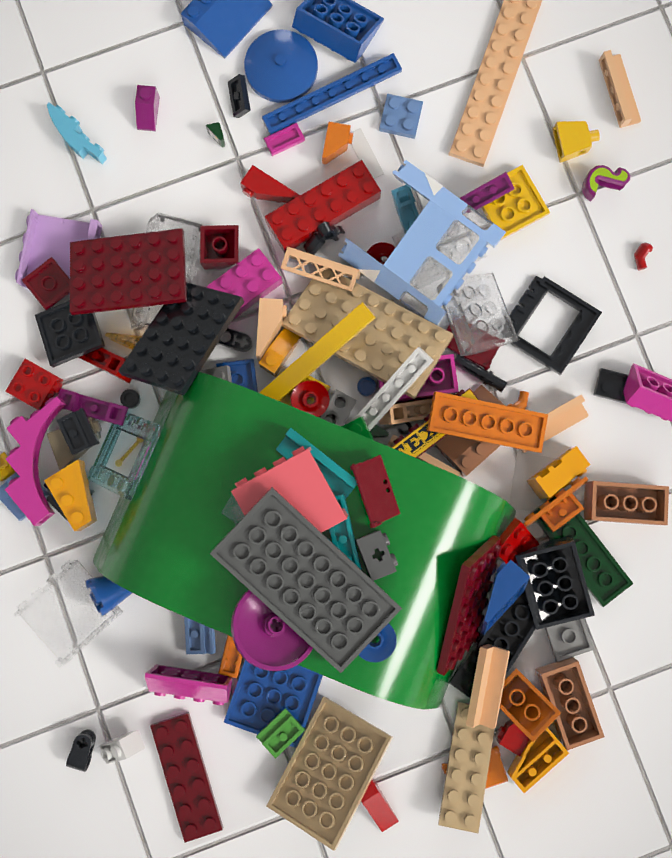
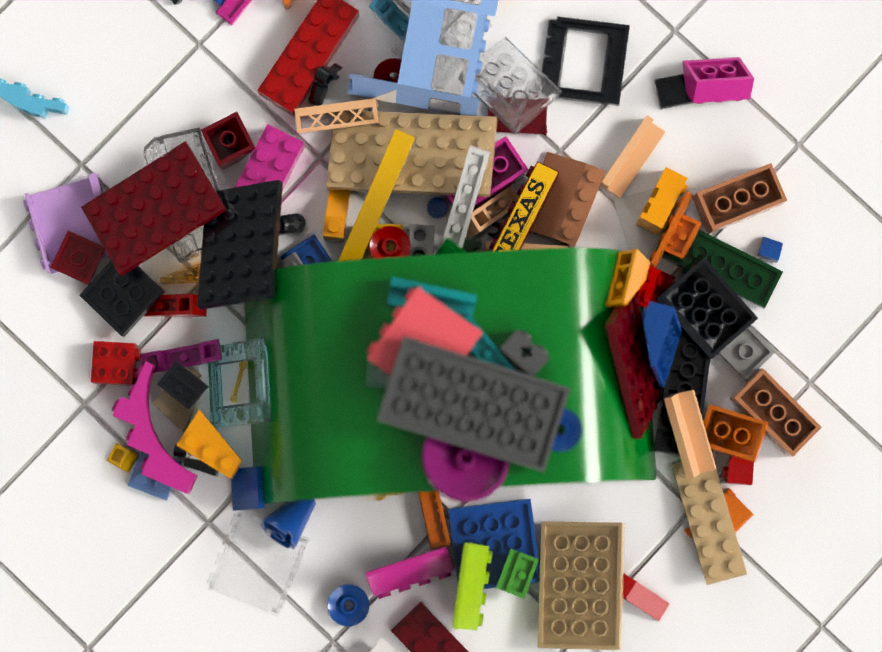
camera: 25 degrees left, 0 degrees up
(90, 546) = (248, 489): none -> blue tile
(115, 686) = (340, 613): none -> blue dish
(130, 398) = (213, 330): black tile -> none
(146, 107) = (85, 38): magenta slope -> none
(199, 638) = (394, 521): medium blue plate -> none
(215, 132) = (166, 29): dark green slope -> none
(233, 727) = (470, 587): none -> lime slope
(264, 187) = (243, 60): red slope -> none
(270, 319) = (313, 186): light nougat slope -> none
(377, 502) = (502, 305): dark red door -> none
(480, 373) = (550, 142): black pin -> none
(487, 422) = (569, 185): orange plate -> none
(500, 528) = (628, 277): none -> light orange slope
(522, 400) = (595, 152): orange arm -> none
(536, 760) = (769, 478): light orange wedge -> none
(630, 559) = (770, 249): none -> blue slope

